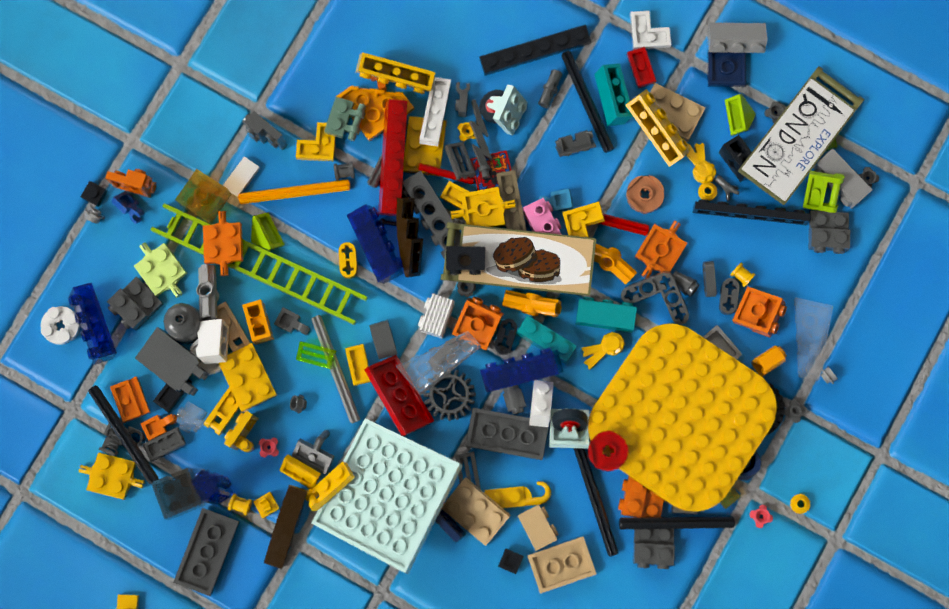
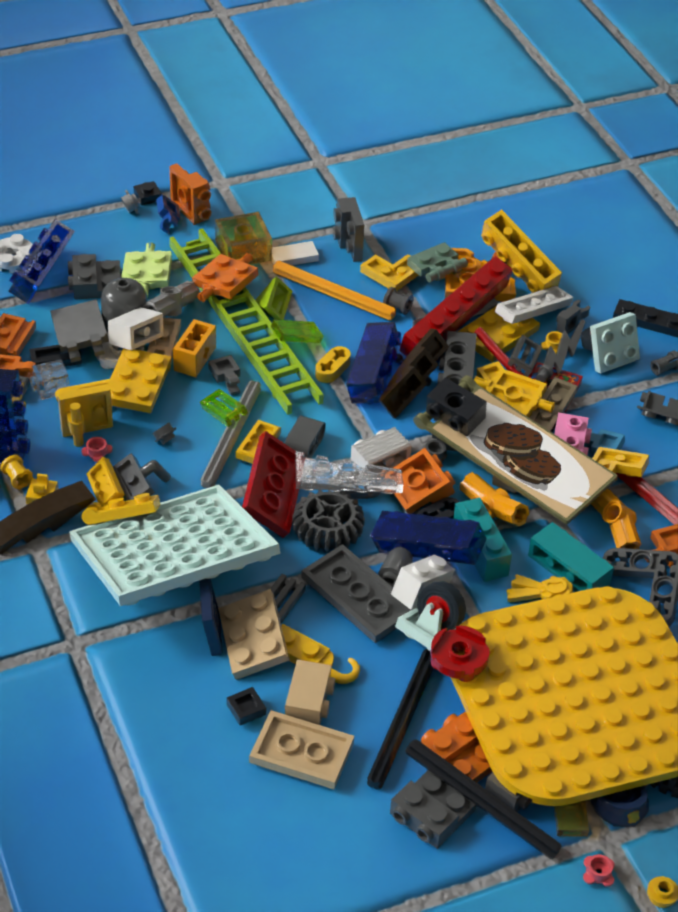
camera: 30 degrees right, 35 degrees down
(305, 252) = (297, 331): none -> clear neon green tile

